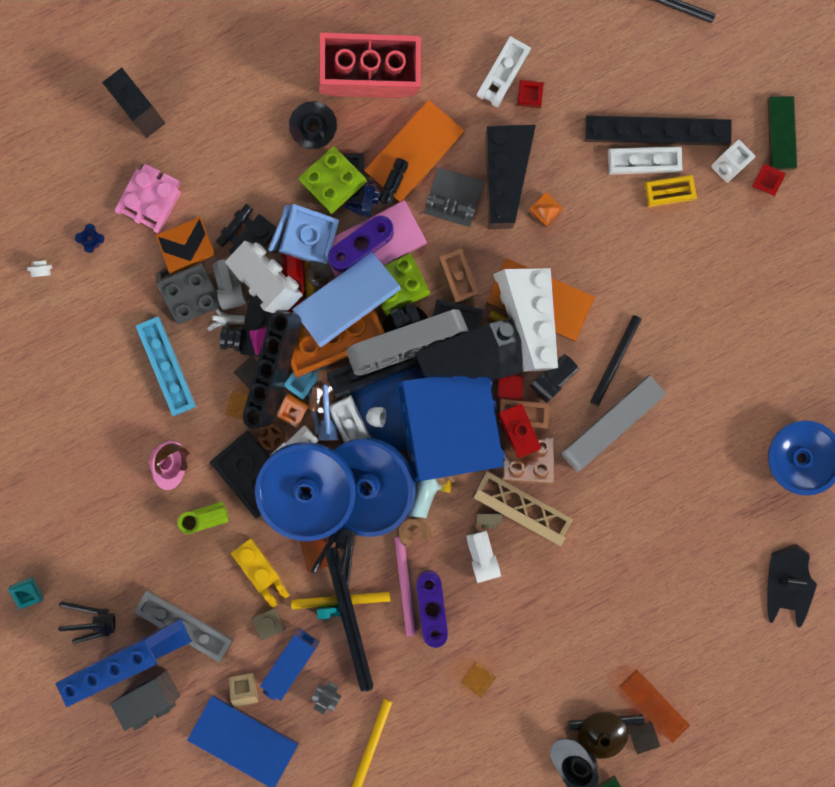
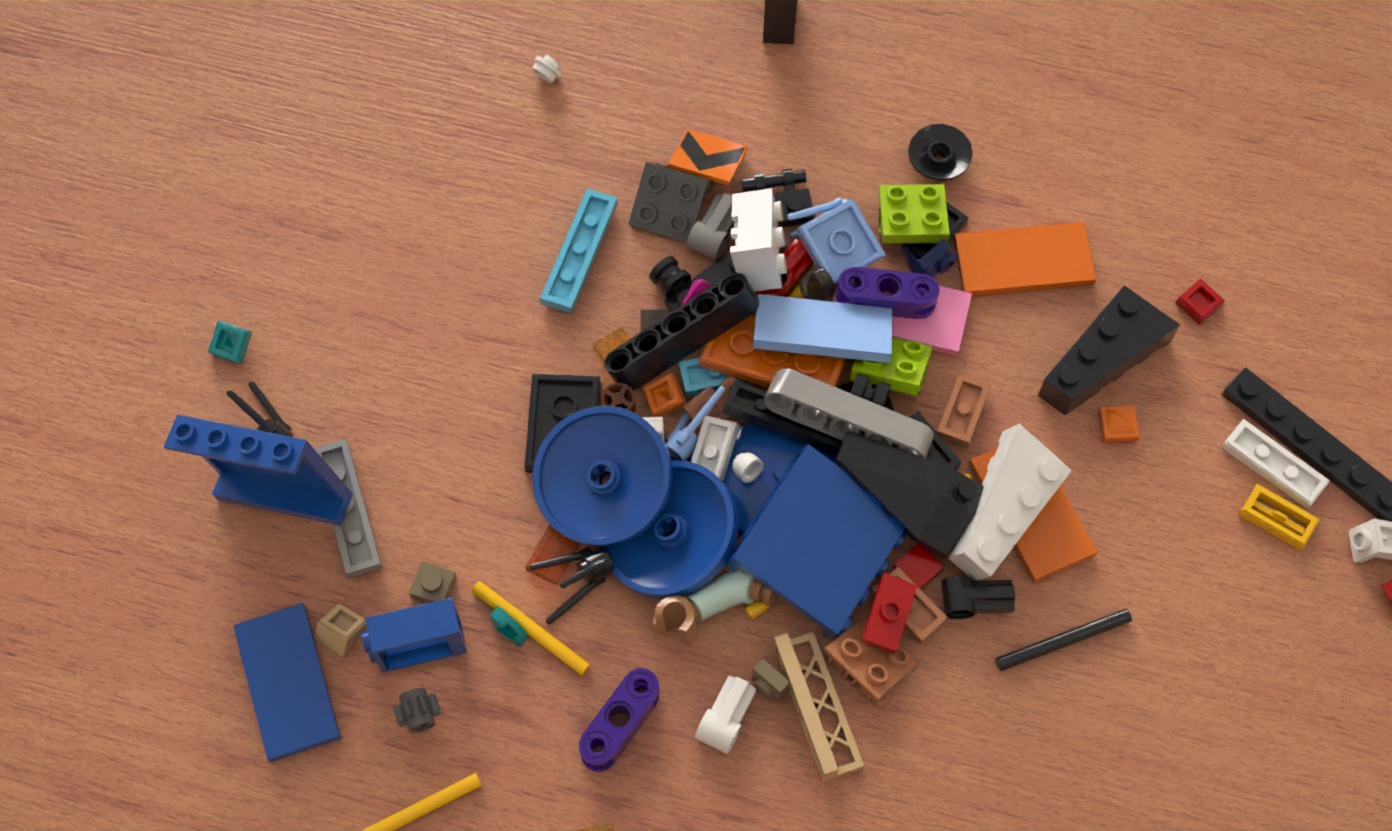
camera: 40 degrees right, 20 degrees down
(95, 242) = (621, 89): clear blue plate -> none
(145, 700) = (237, 540): dark grey brick -> none
(149, 197) = (716, 91): bright pink plate -> none
(168, 464) = (490, 338): bright pink piece -> none
(205, 517) = (475, 420): lime piece -> none
(226, 319) = (681, 256): white bar -> none
(259, 570) = (477, 522): yellow hinge -> none
(349, 620) = (519, 654): black axle -> none
(369, 65) = (1047, 133): coral brick -> none
(393, 181) = (976, 264): black axle -> none
(405, 587) = (611, 676): bright pink bar -> none
(453, 197) = (1027, 333): dark grey hinge -> none
(504, 71) = (1189, 257): white plate -> none
(613, 423) = (1002, 700): light grey beam -> none

